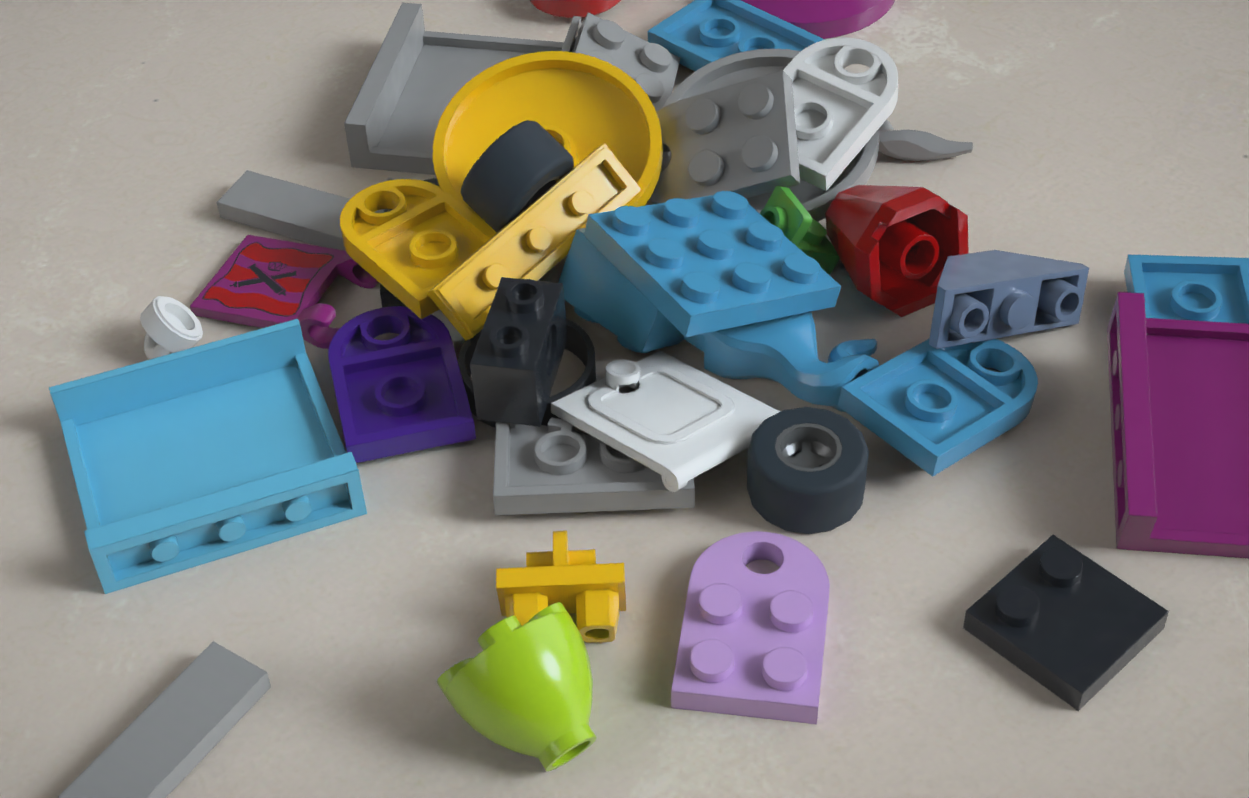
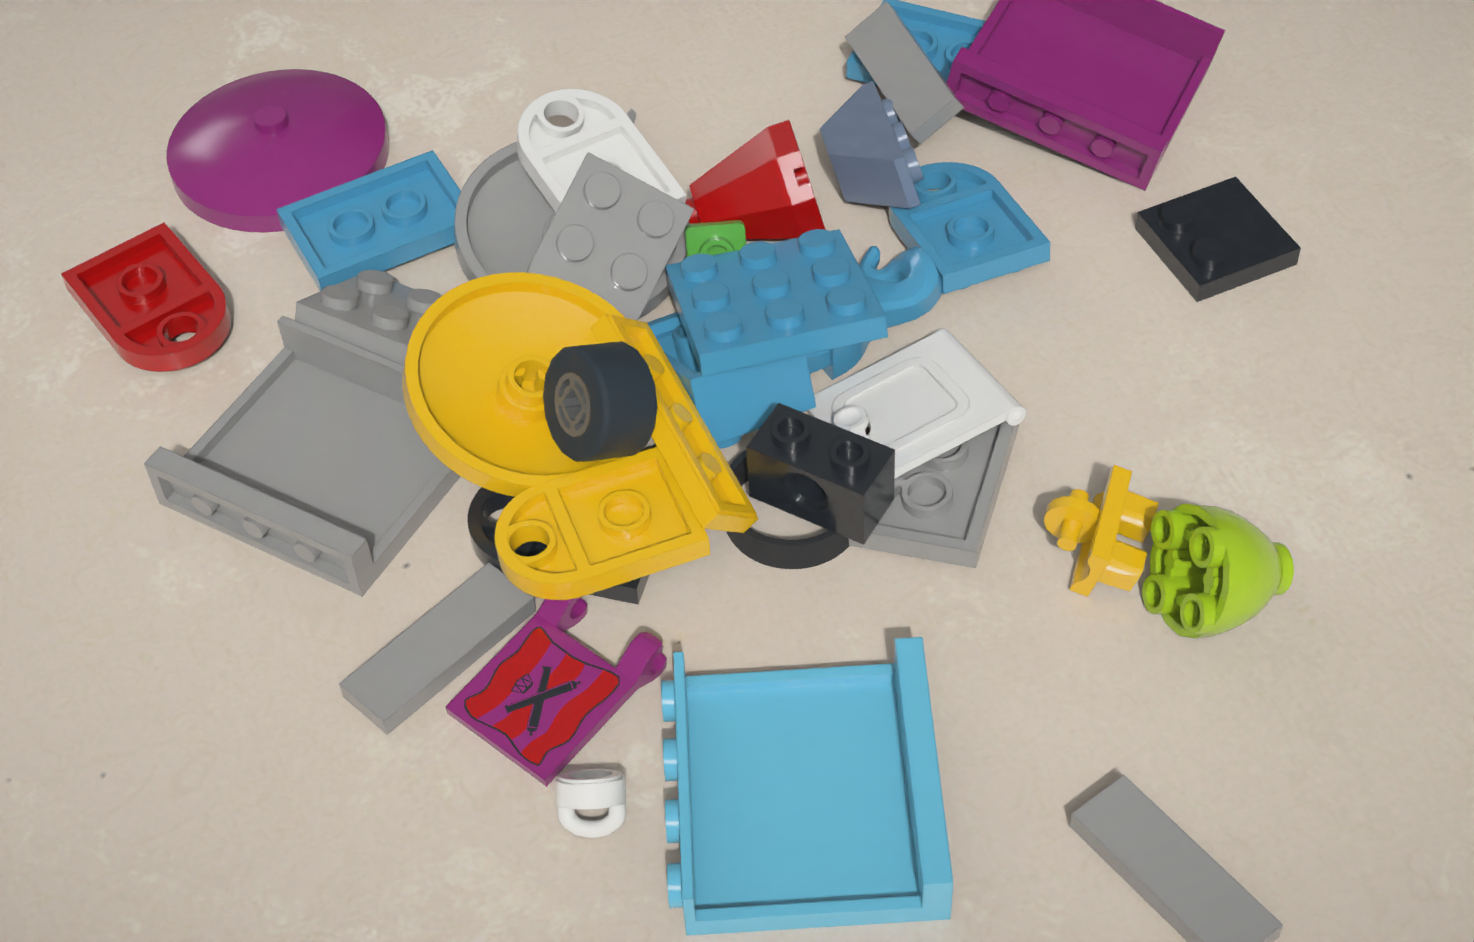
camera: 70 degrees left, 5 degrees up
(398, 390) = (769, 606): dark purple plate -> none
(752, 637) = (1167, 422): lavender plate -> none
(807, 470) = (1018, 331): black wheel -> none
(1094, 295) = (904, 72): none -> light grey tile

